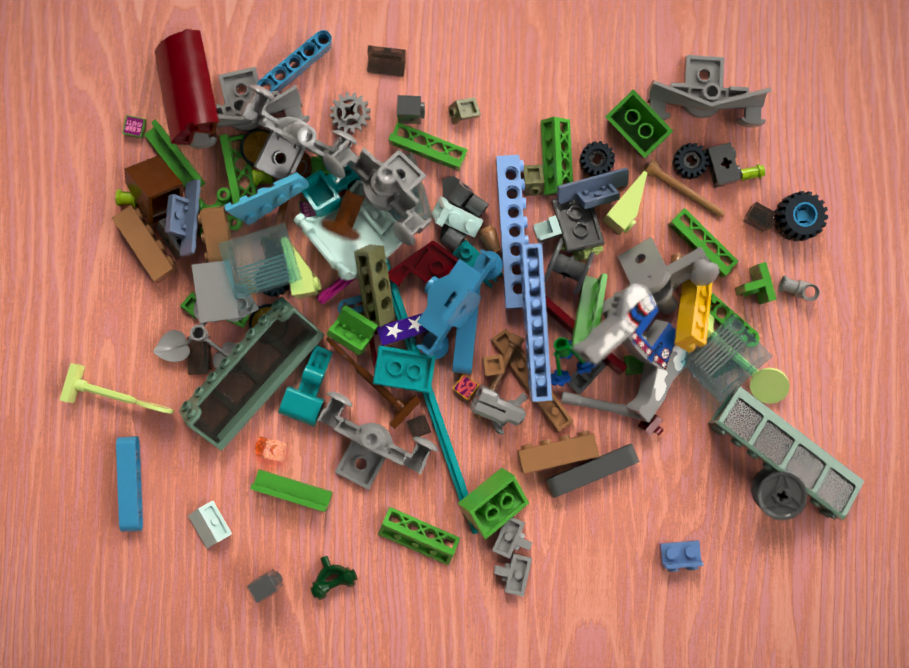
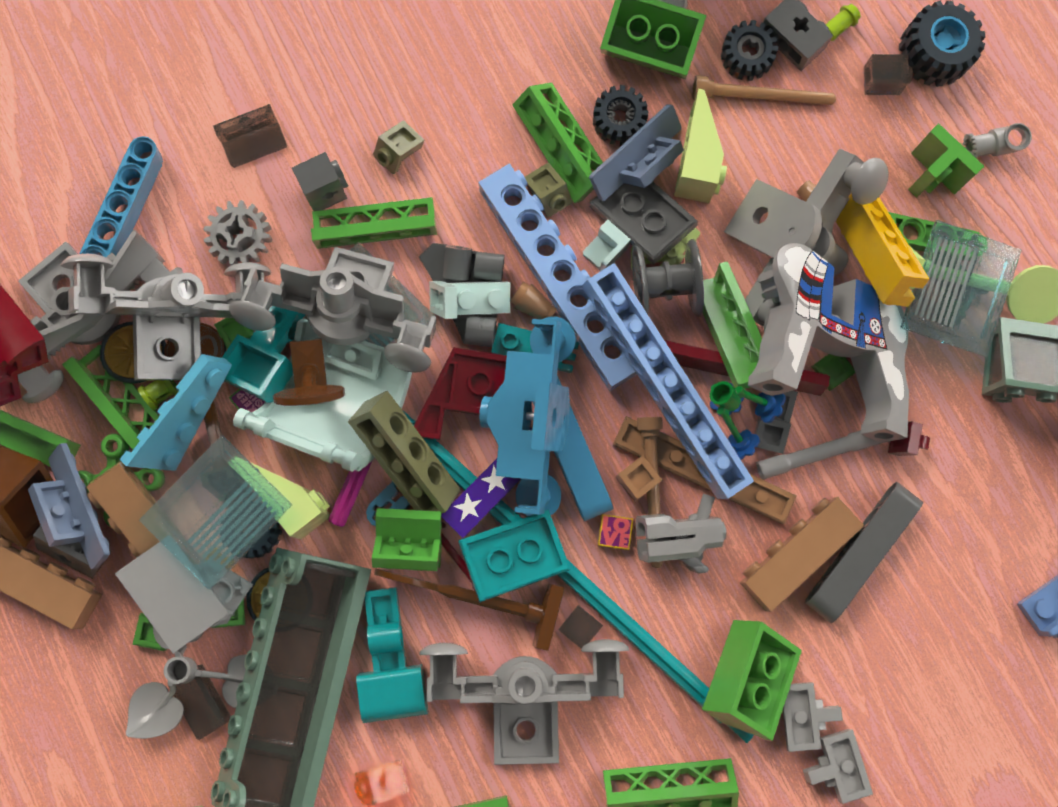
camera: 30 degrees left, 5 degrees down
(694, 242) = (816, 154): bright green fence -> none

